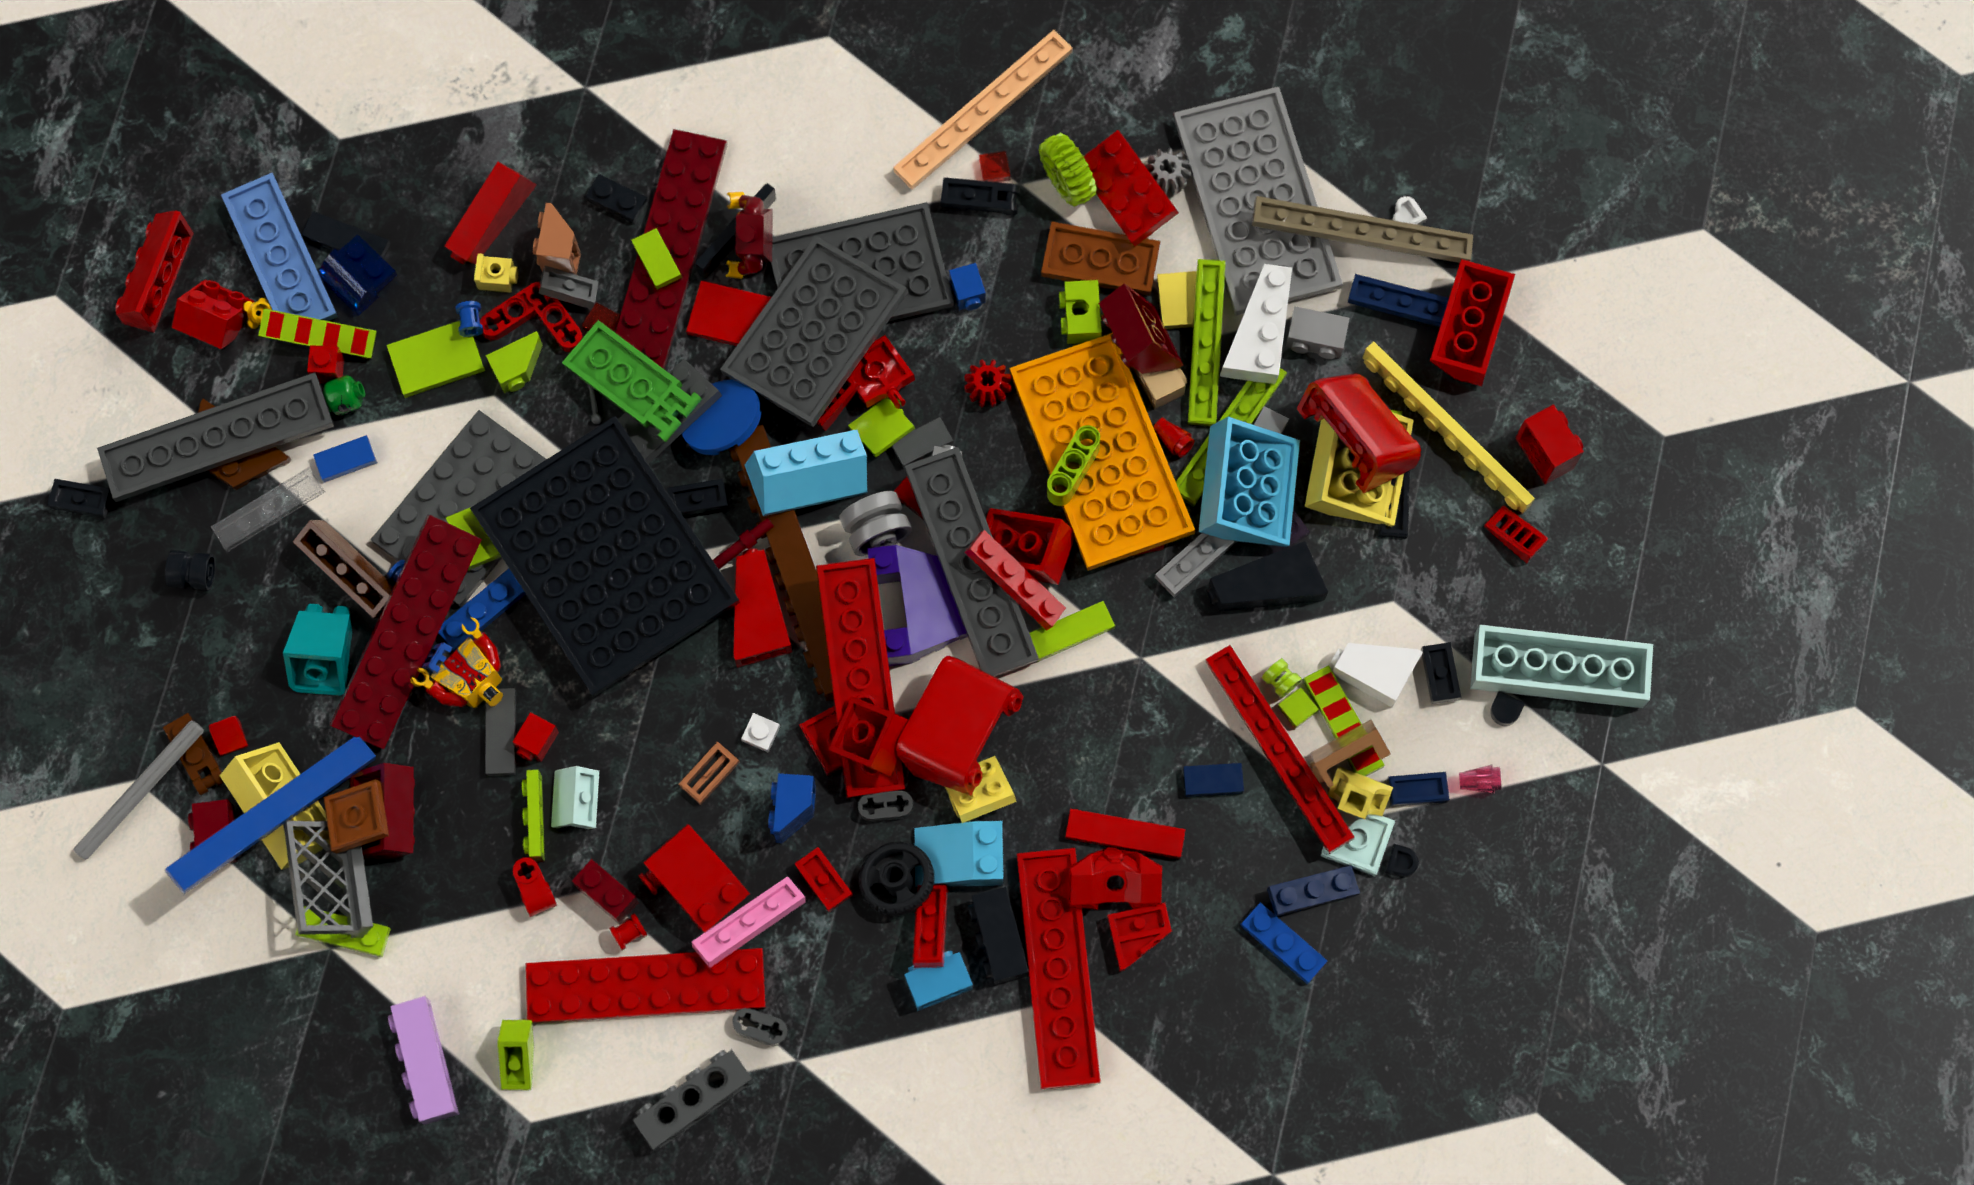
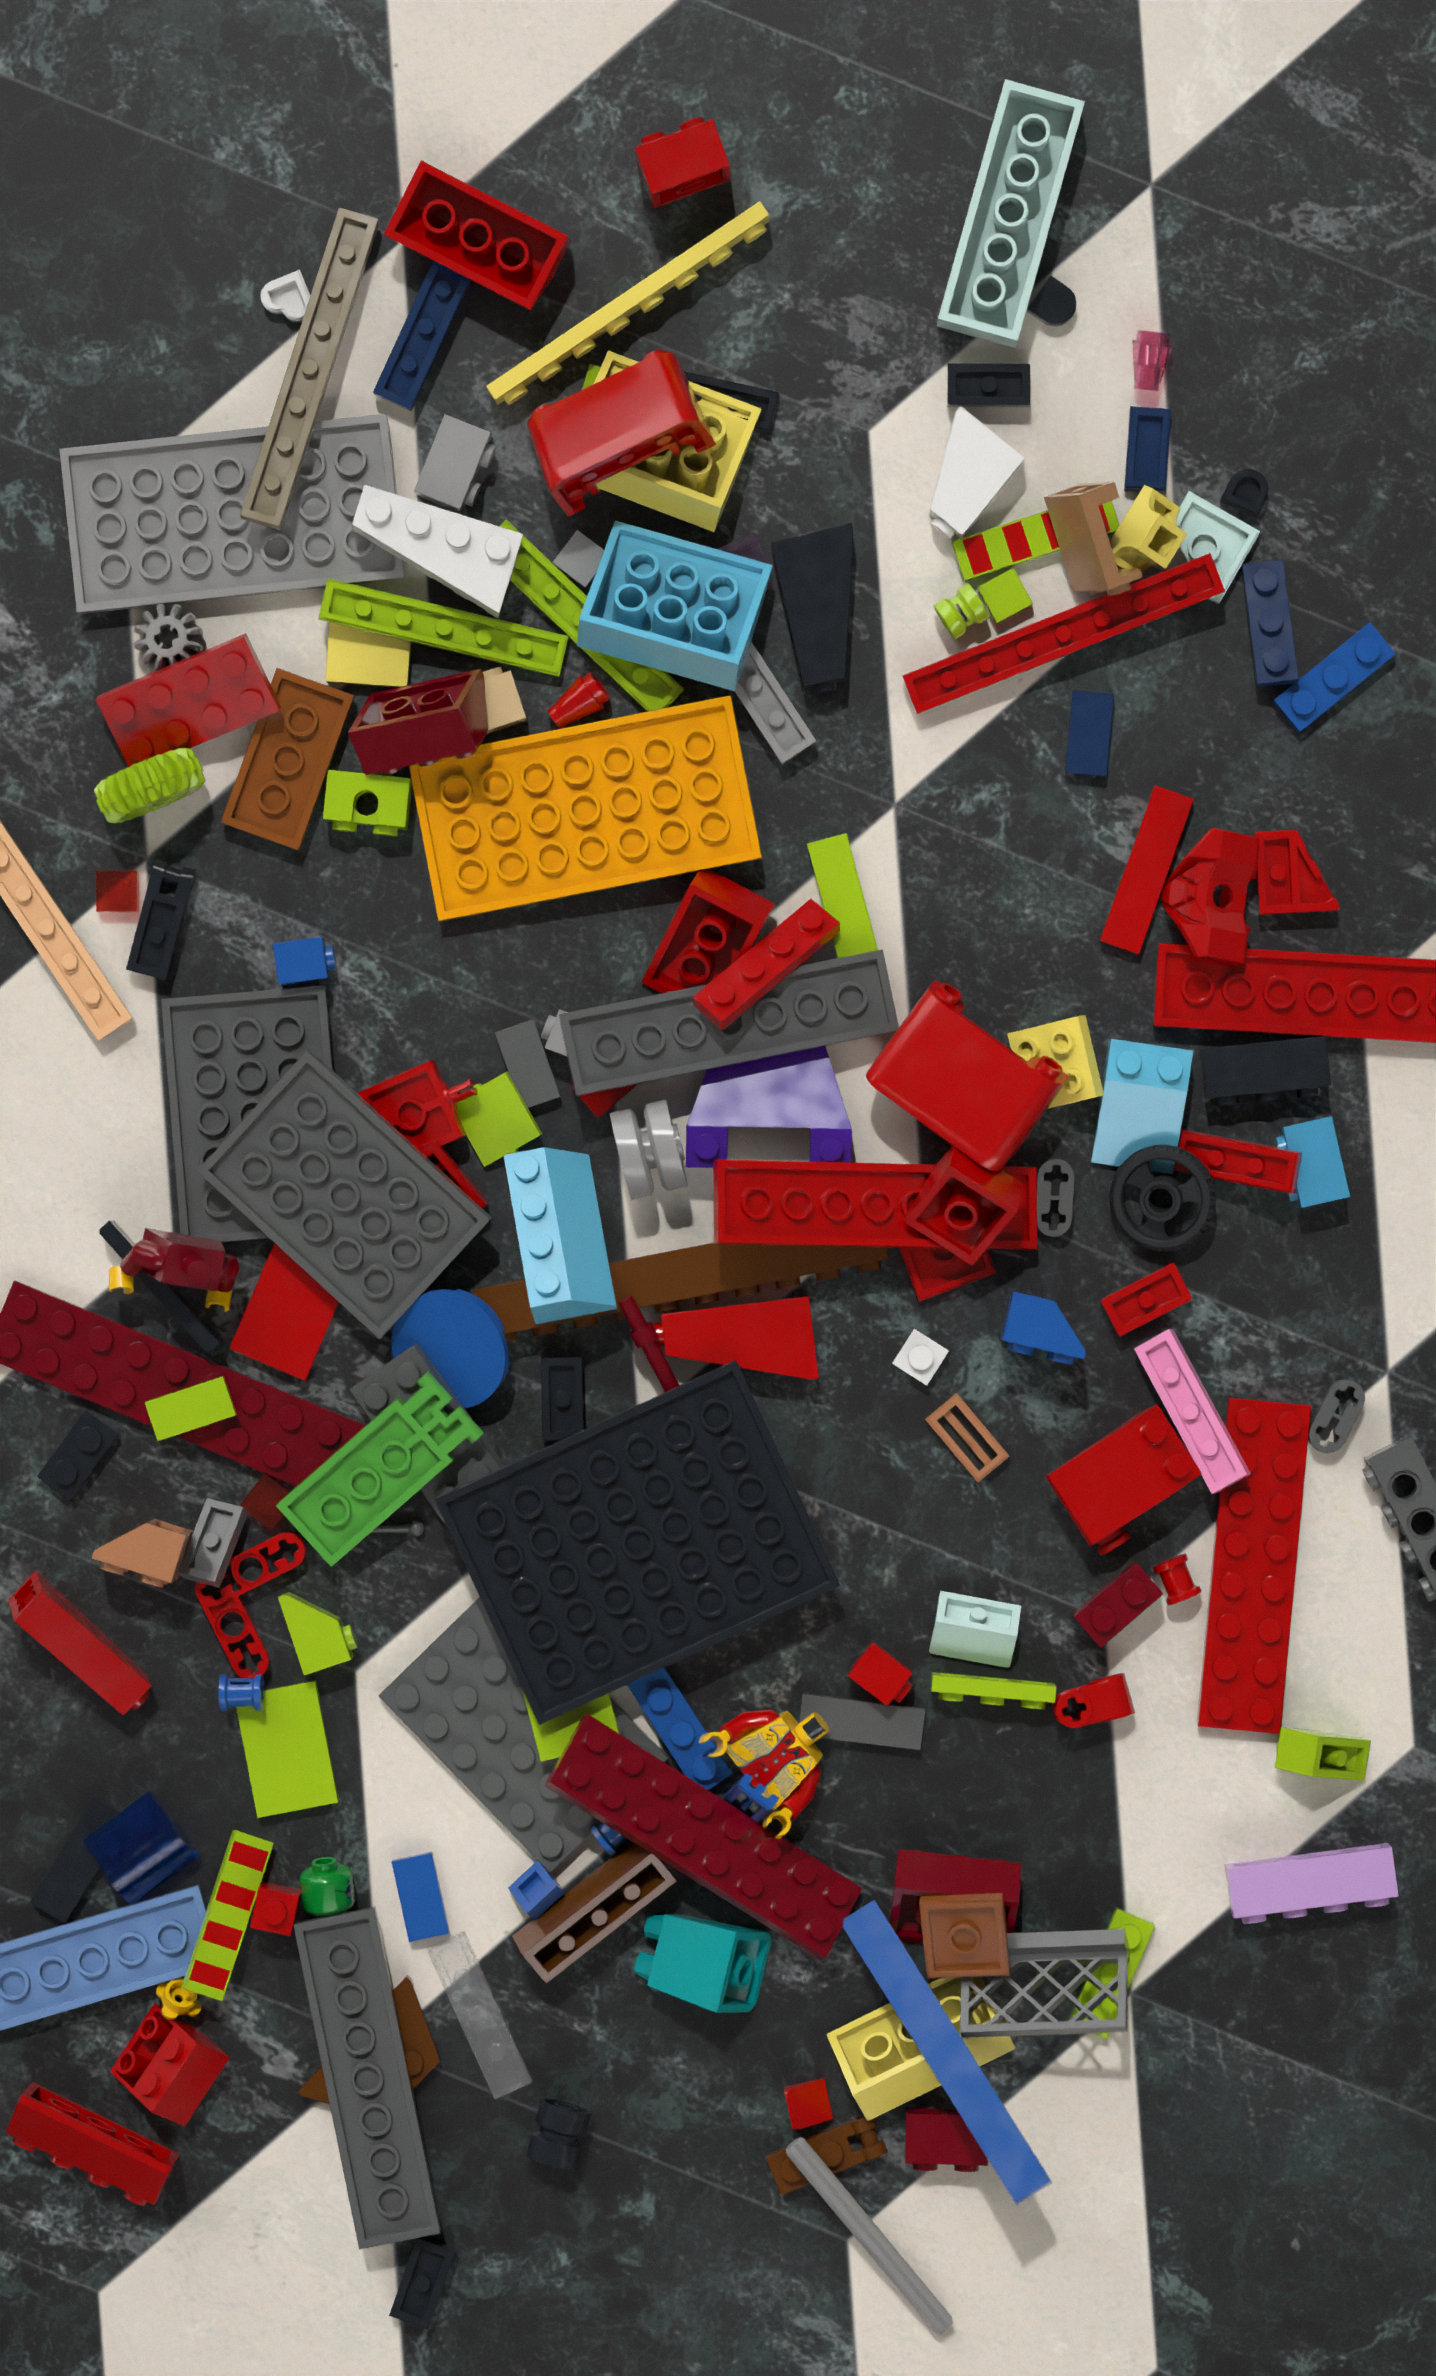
camera: 80 degrees left, 15 degrees up
(357, 531) = (536, 1890): none -> blue plate
(496, 282) = (176, 1663): light yellow brick -> none
(987, 393) = (452, 968): red gear -> none
(1069, 477) = (590, 848): lime beam -> none
(1530, 532) = (835, 228): red slope -> none

